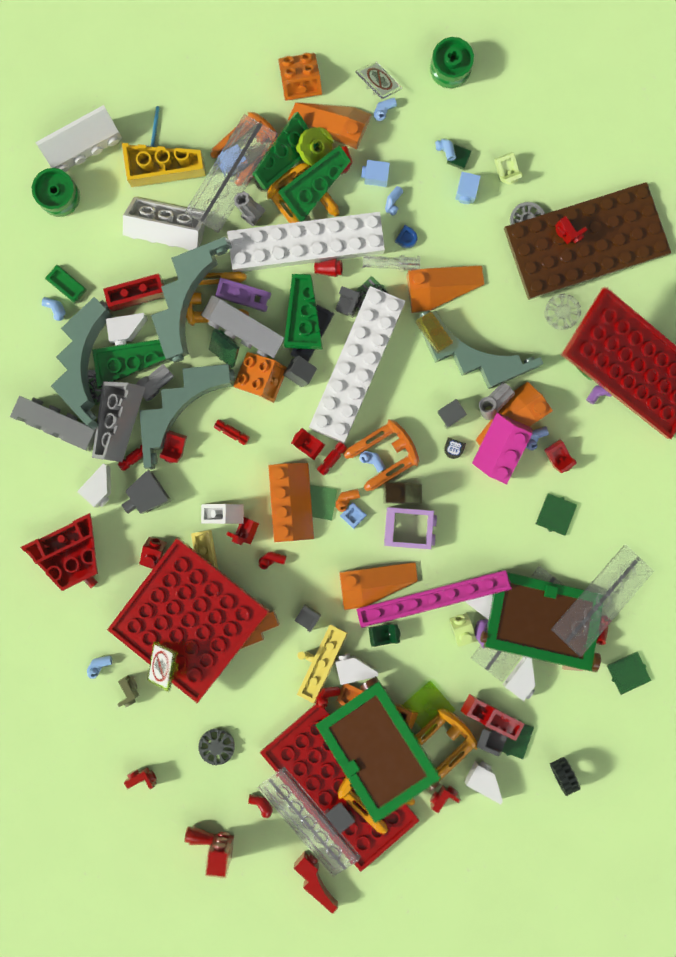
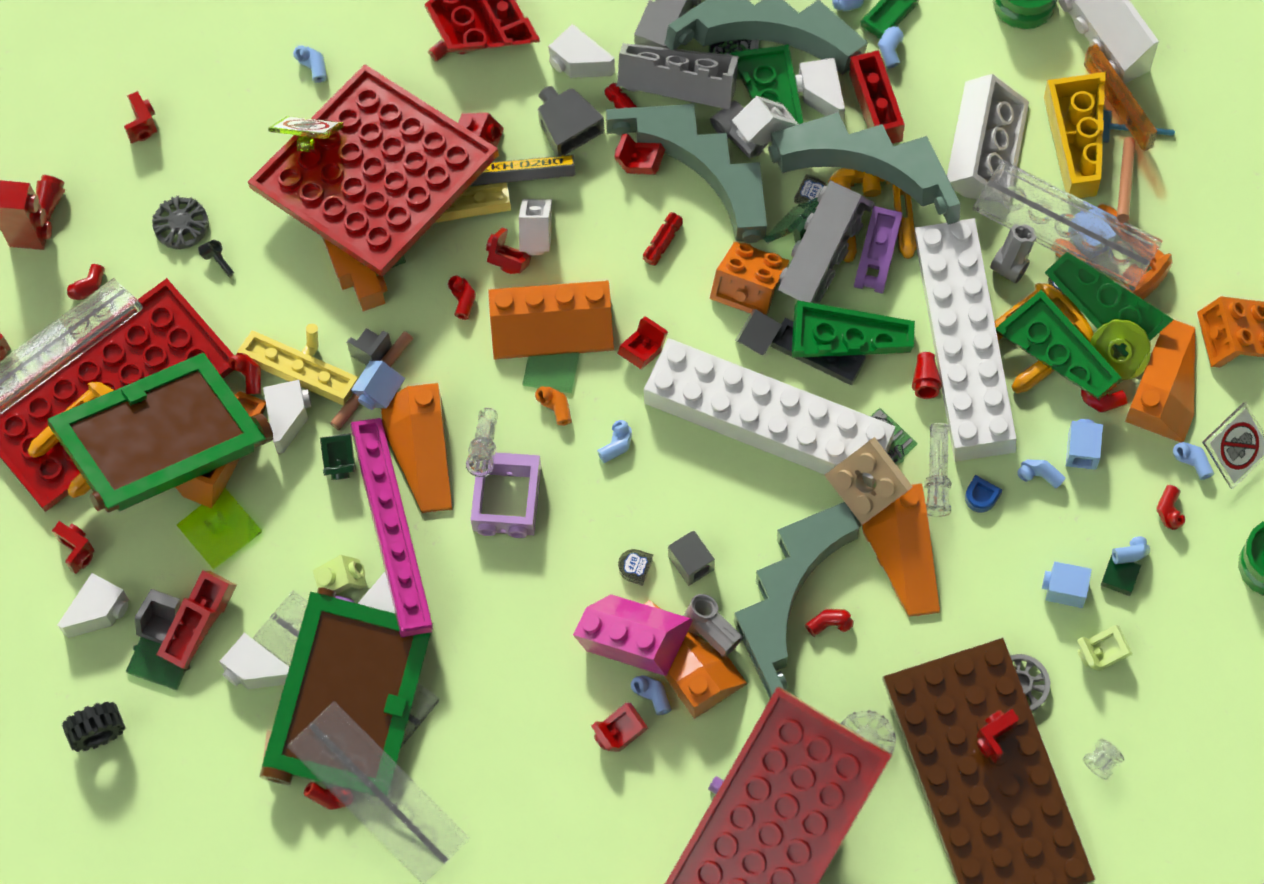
camera: 90 degrees right, 20 degrees down
(91, 284) = (888, 44): none -> light blue arm
(129, 688) = (274, 101): olive bracket -> none
(135, 136) = (1122, 99): none -> clear orange tile
(155, 364) = (761, 119): none -> white slope
(181, 515) = (527, 170): none -> dark grey tile
(197, 135) = (1126, 180): none -> nougat bar
(199, 336) = (808, 189): none -> tile
(237, 723) = (213, 250): none -> black hand
(330, 616) = (389, 358): none -> nougat bar
(332, 458) = (619, 382): red axle -> none
(337, 611) = (377, 385): none -> light blue brick
(340, 817) = (58, 383): dark grey panel -> none
(348, 301) = (872, 403): dark grey panel -> none
(353, 515) = (529, 415): light blue tile -> none
(386, 542) = (482, 448): none -> clear pin
(402, 493) = (561, 476): dark brown slope -> none
(403, 442) = (644, 487): orange piece -> none
(410, 302) = (859, 497): none -> tan brick
(417, 127) = (1166, 508): none -> red arm
(433, 332) = (821, 520): clear yellow slope -> none
(458, 728) = (183, 567): light orange piece -> none
(487, 330) = (830, 617): none -> red arm
(556, 514) = (524, 728): clear green piece -> none
(575, 172) = (1103, 759): none -> clear wheel
(628, 673) = (254, 843): clear green piece -> none

